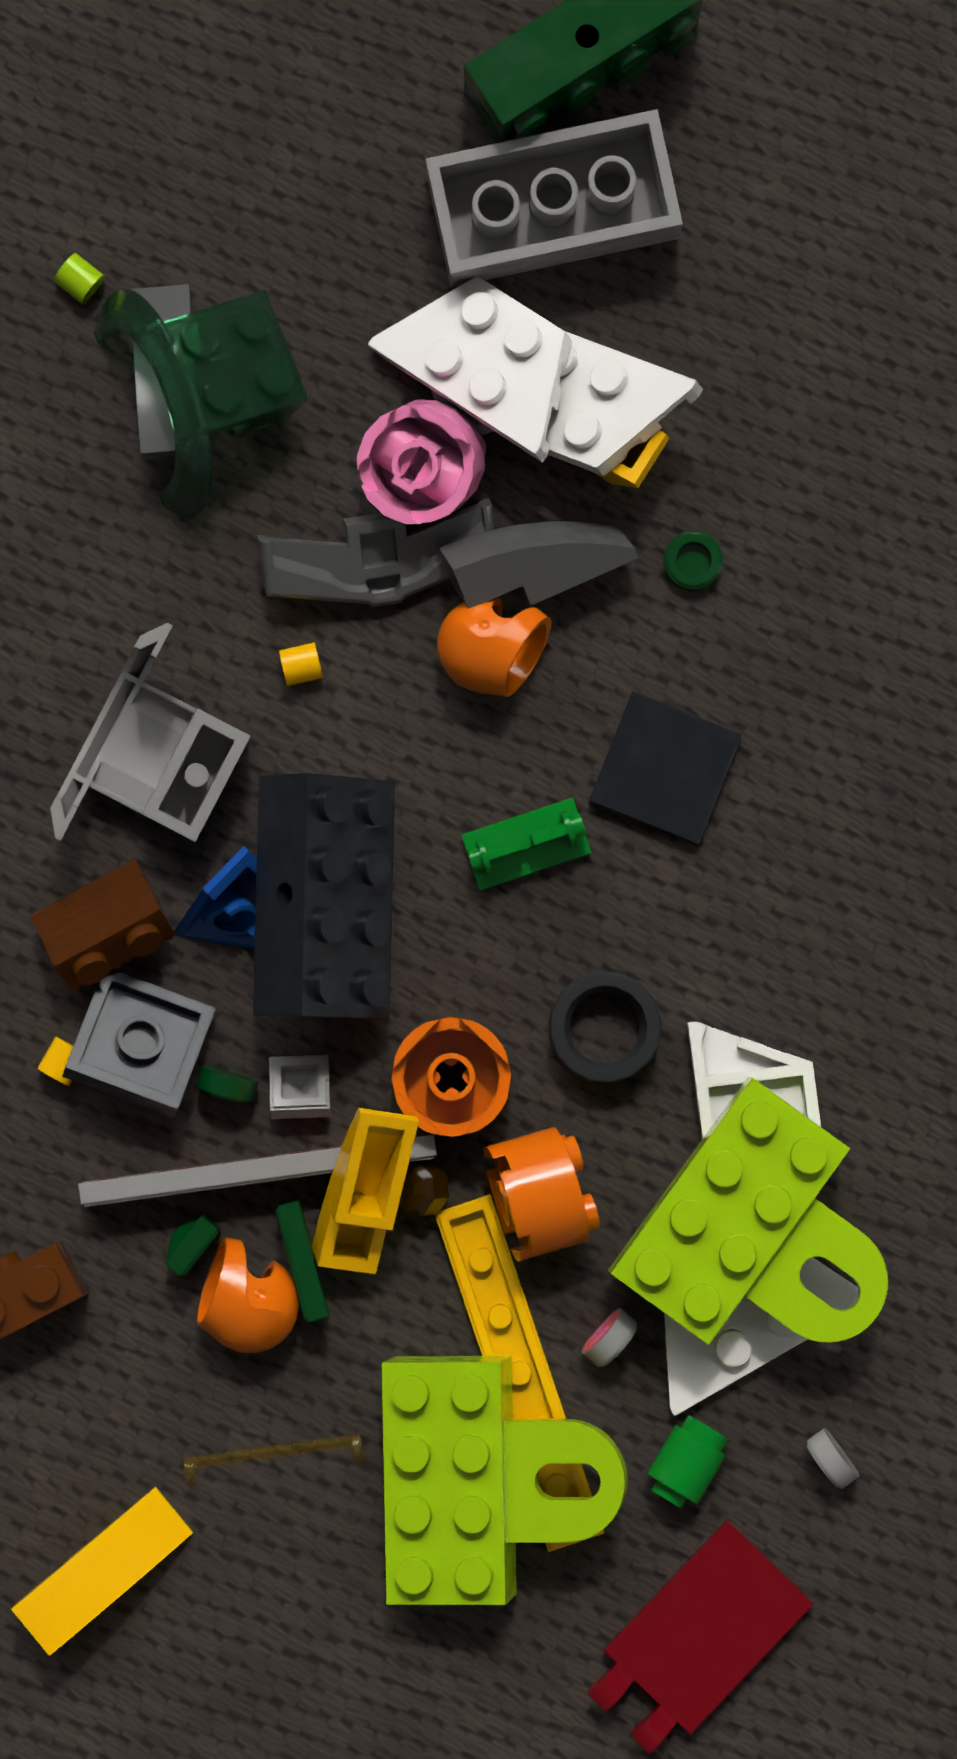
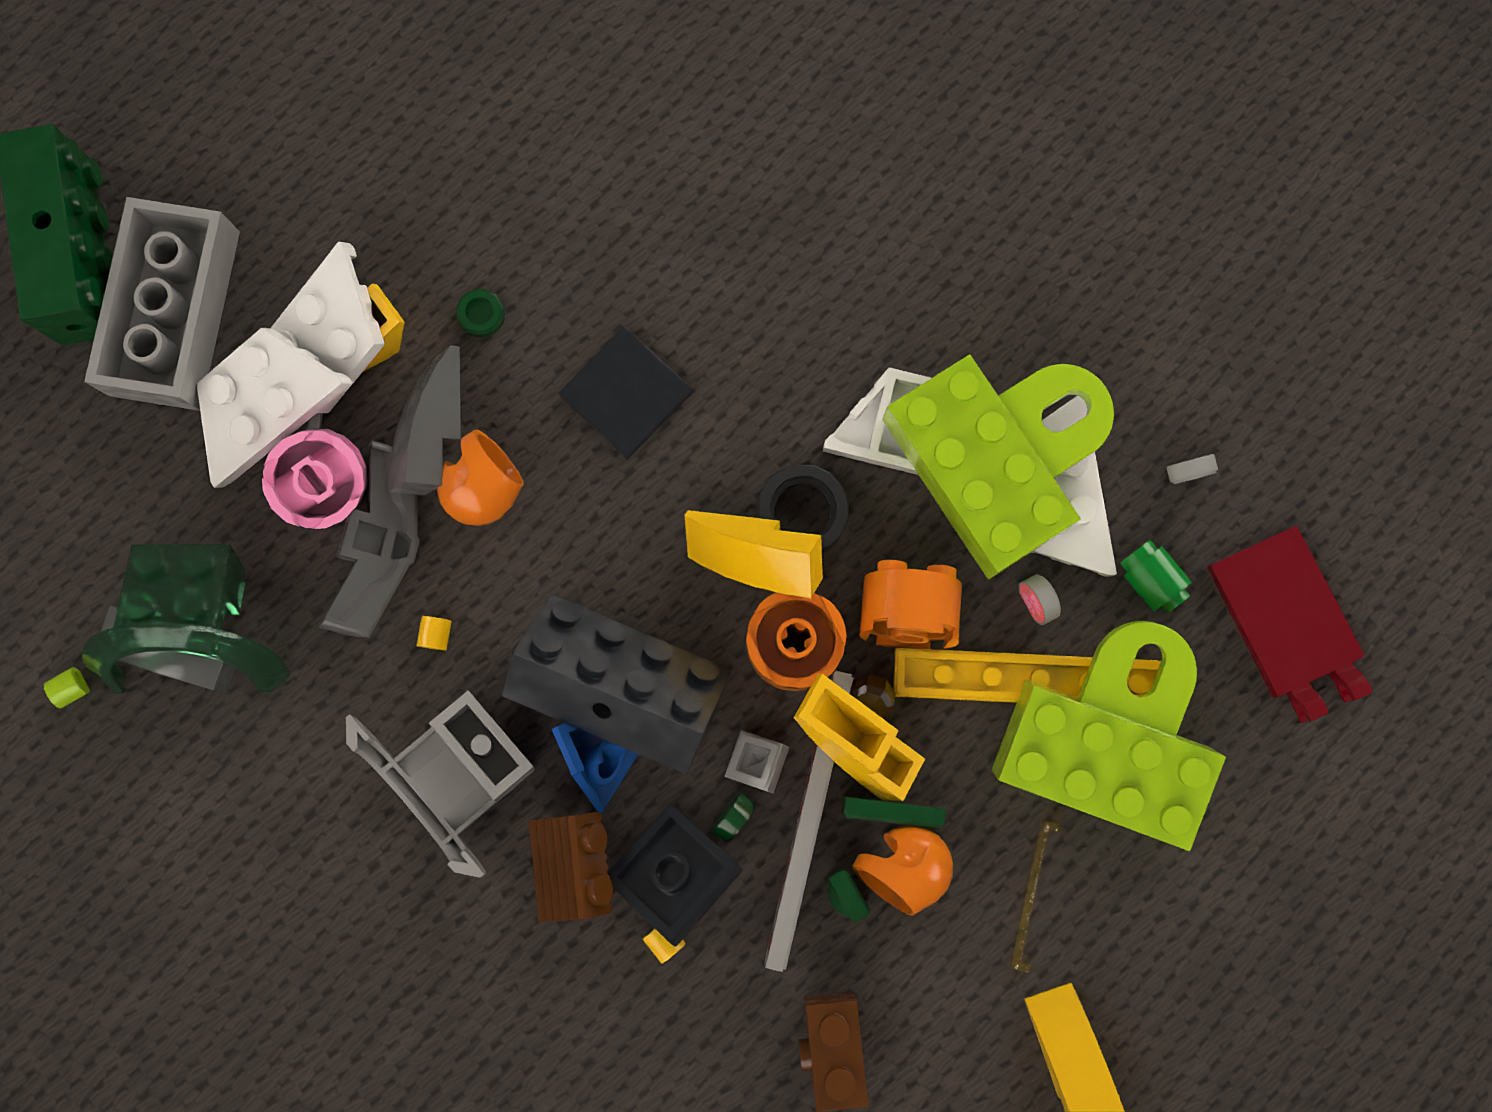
camera: 65 degrees left, 5 degrees down
(526, 843) = (640, 516): green hinge -> none
(531, 992) = (755, 552): none -> yellow slope

